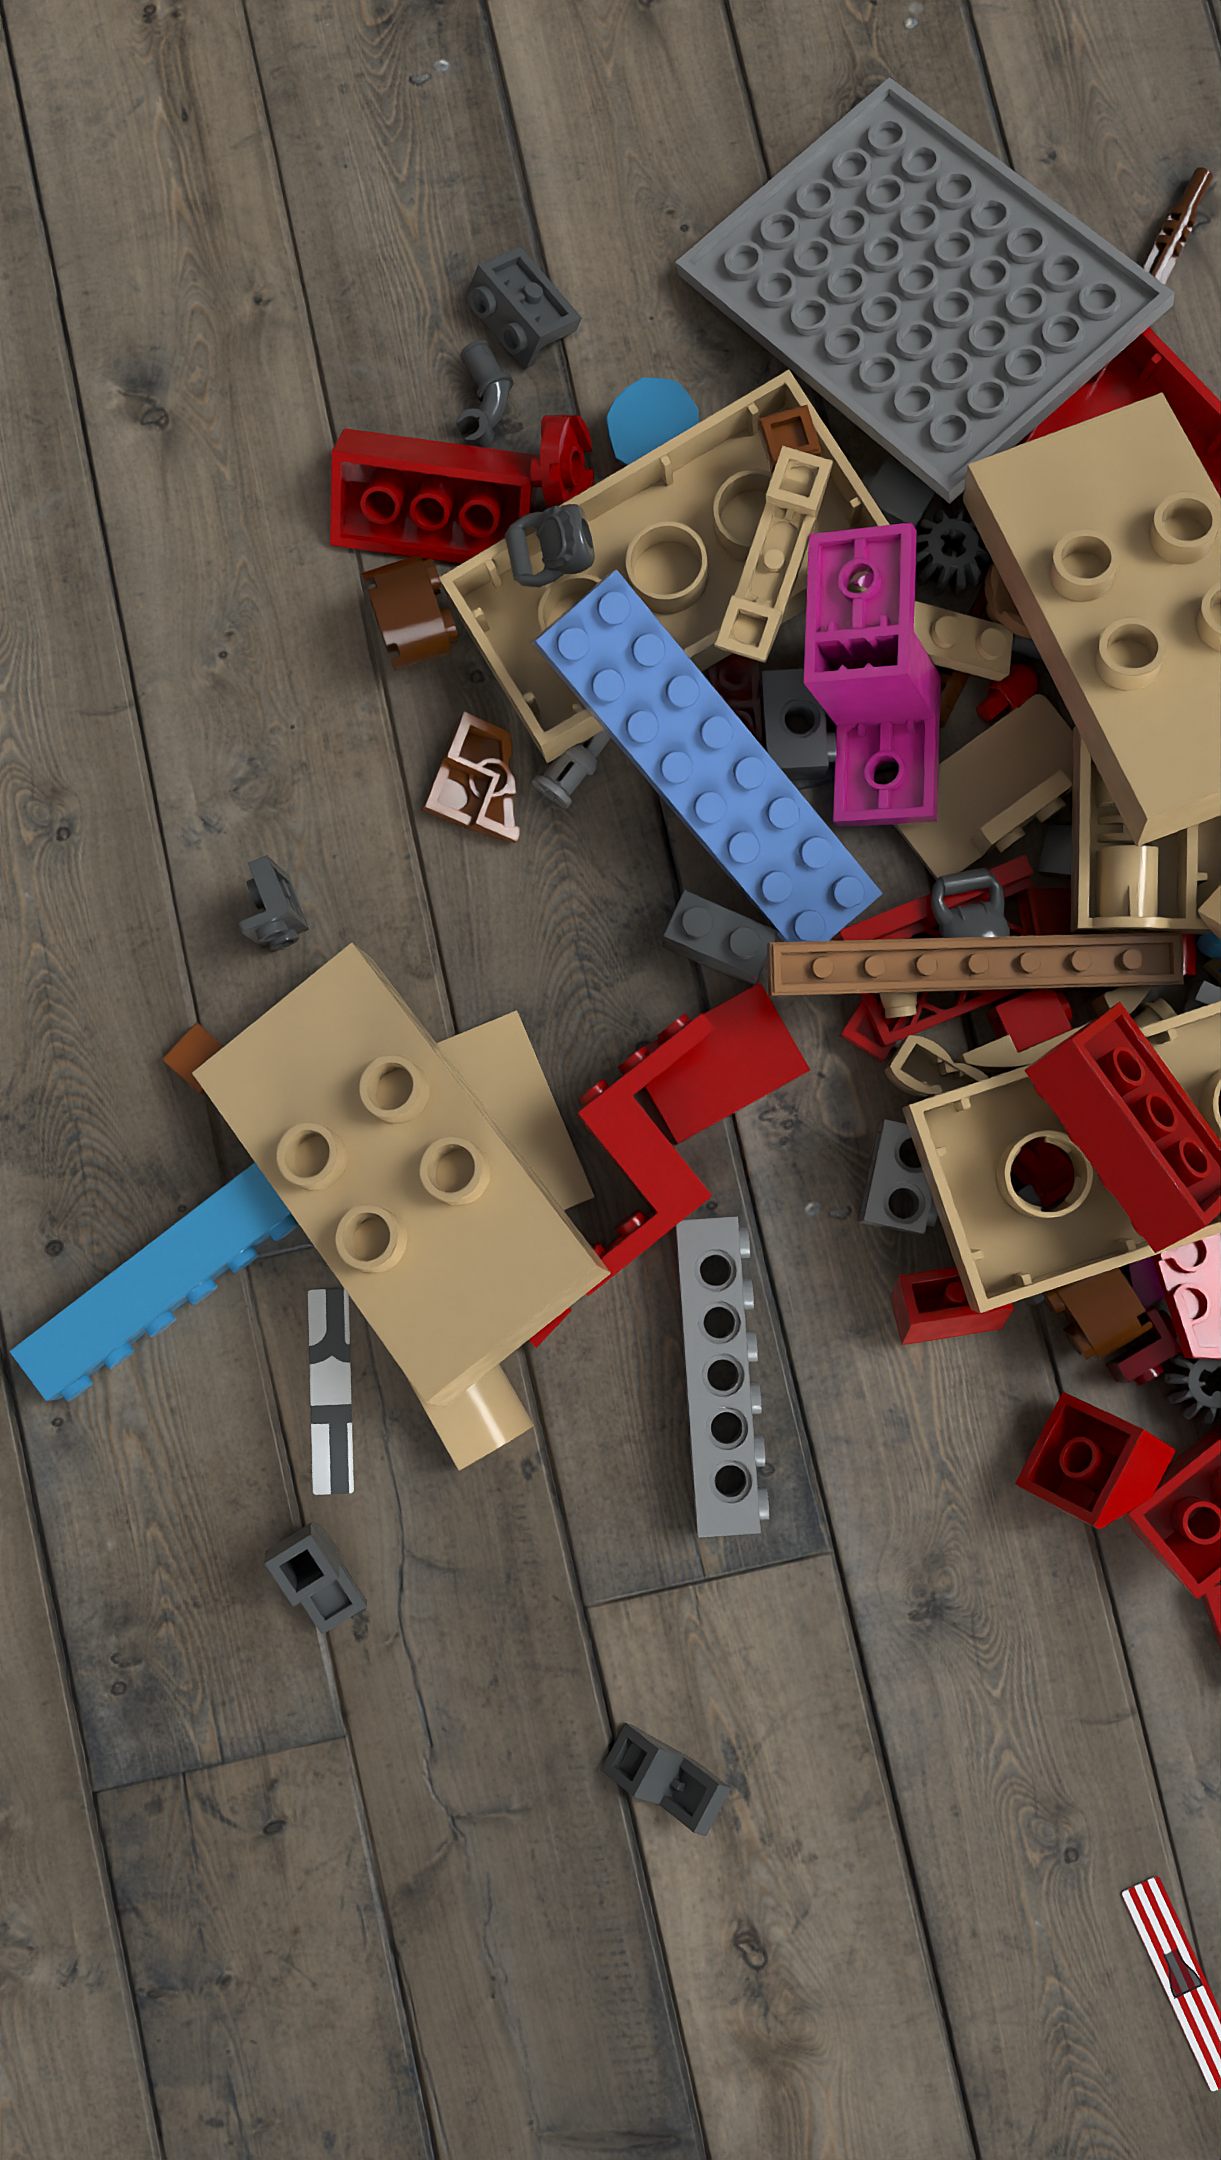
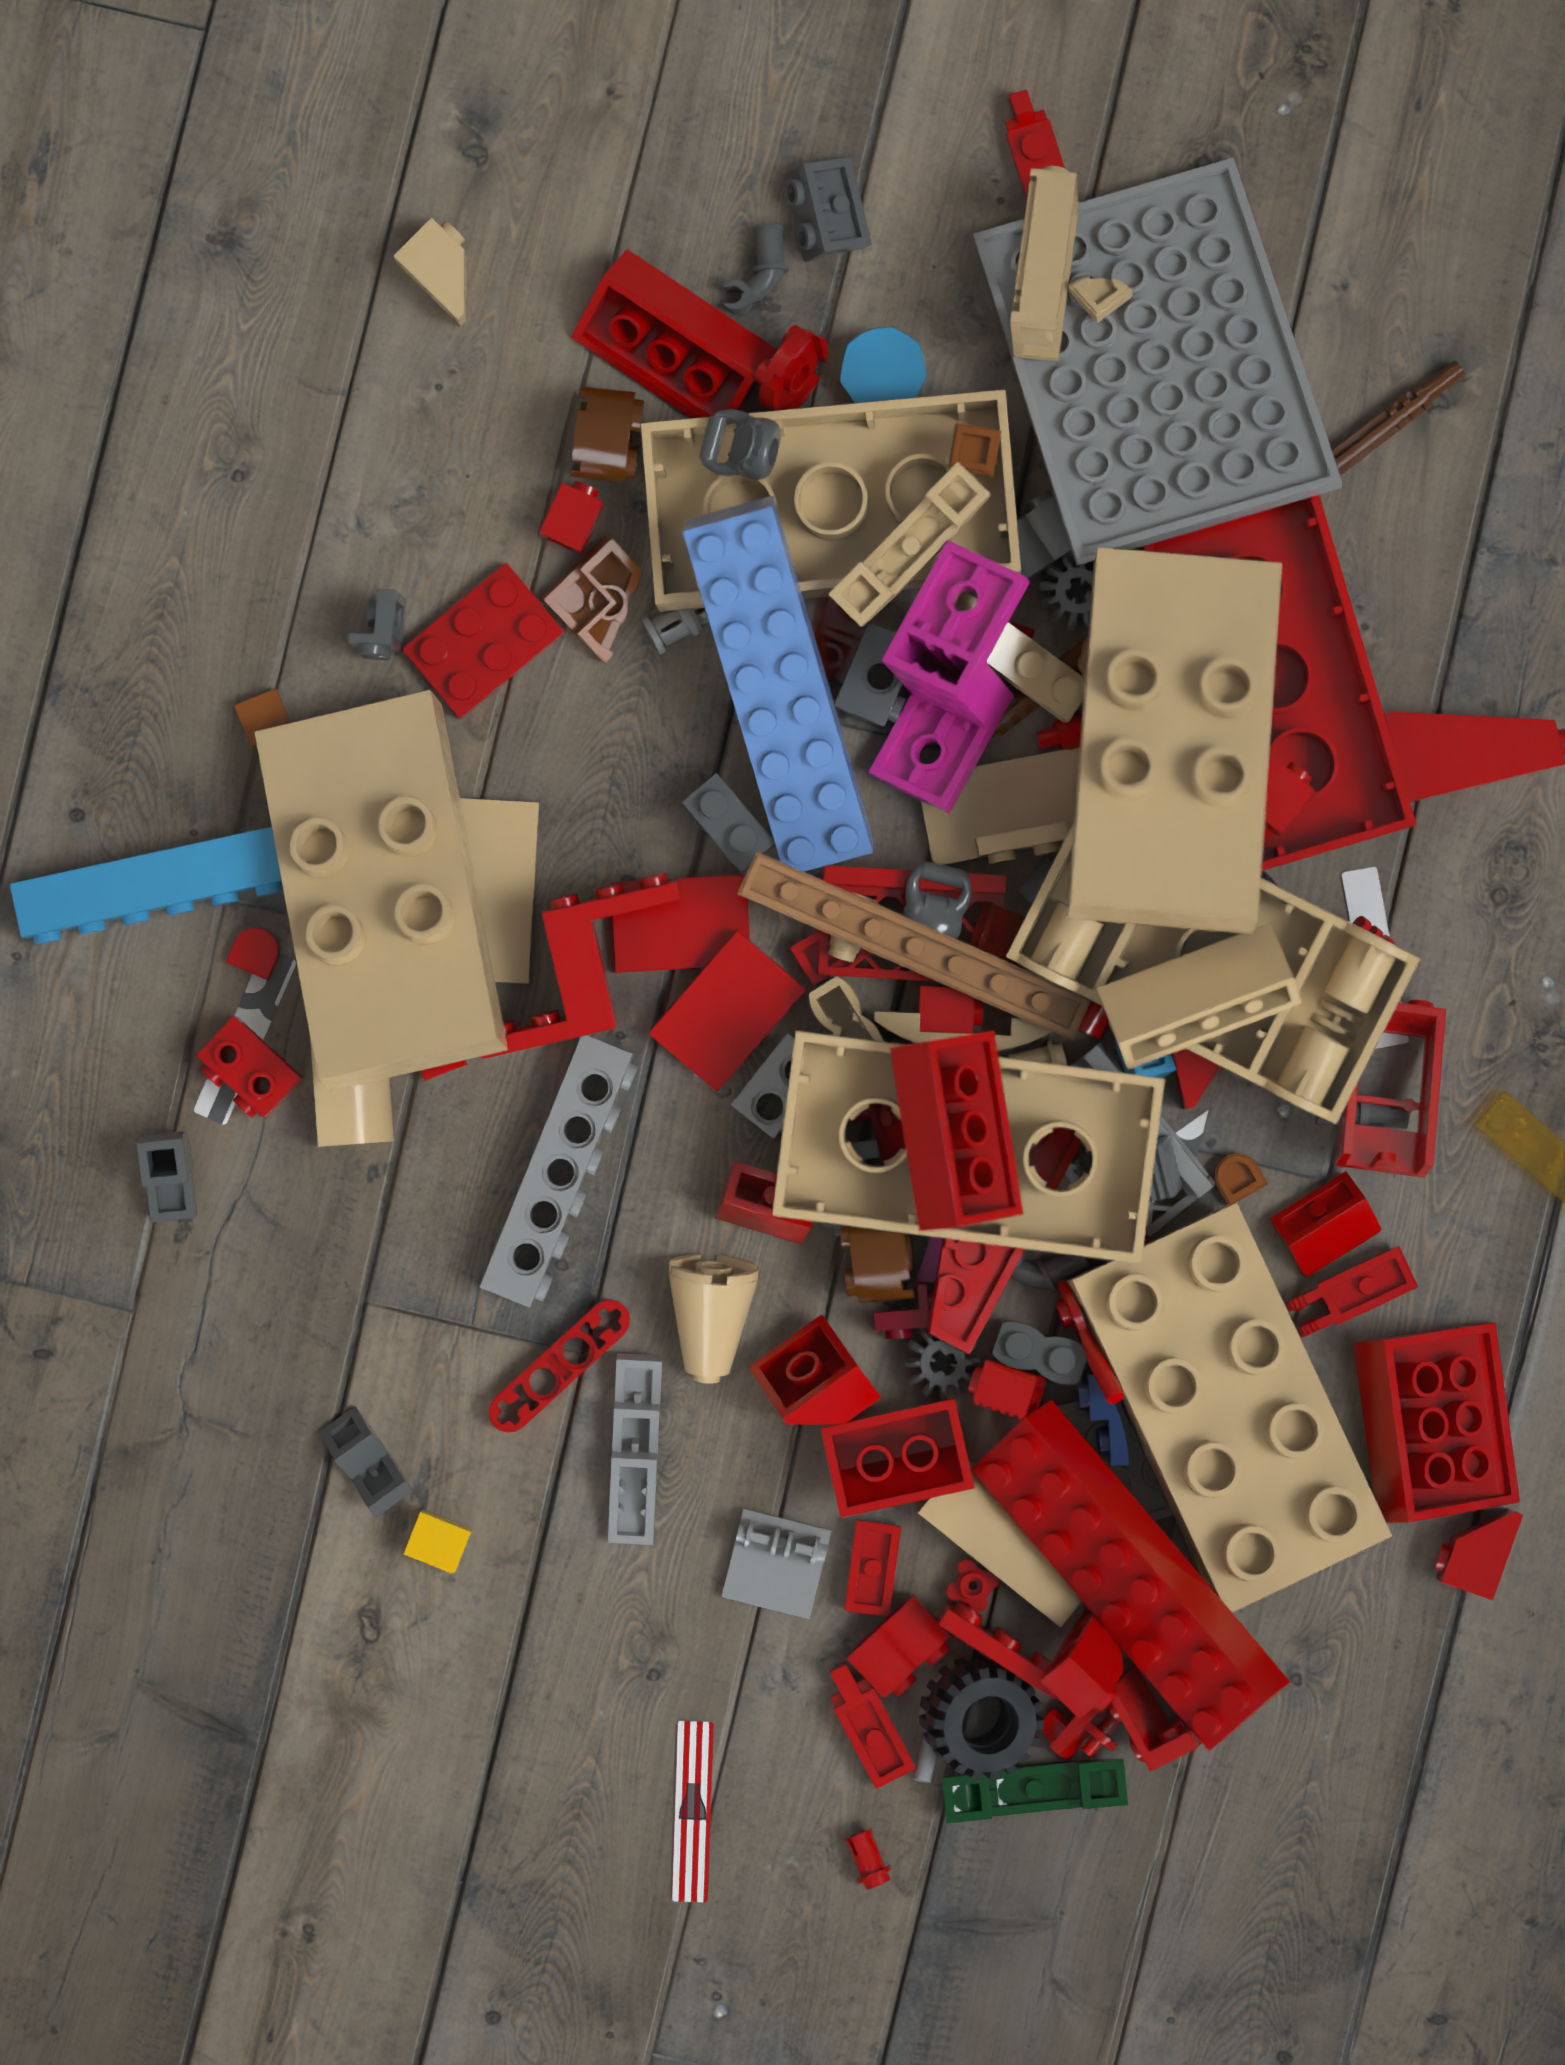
camera: 25 degrees right, 5 degrees up
(162, 534) = (438, 266): none -> tan slope
(300, 1300) = (255, 952): none -> red tile
(349, 1423) = (249, 1068): none -> red brick
(384, 877) = (483, 641): none -> red plate
(415, 713) = (573, 517): none -> red brick
(697, 165) = (1030, 139): none -> red hinge
(766, 231) = (1045, 264): none -> tan door
(783, 1828) = (438, 1541): none -> yellow panel
(809, 1127) = (727, 1010): none -> red tile
(822, 1578) = (557, 1363): none -> red beam
(832, 250) = (1099, 295): none -> tan tile
(938, 1627) = (635, 1449): none -> light grey slope
(947, 1442) = (711, 1310): none -> tan cone
(1142, 1674) = (776, 1563): none -> light grey hinge

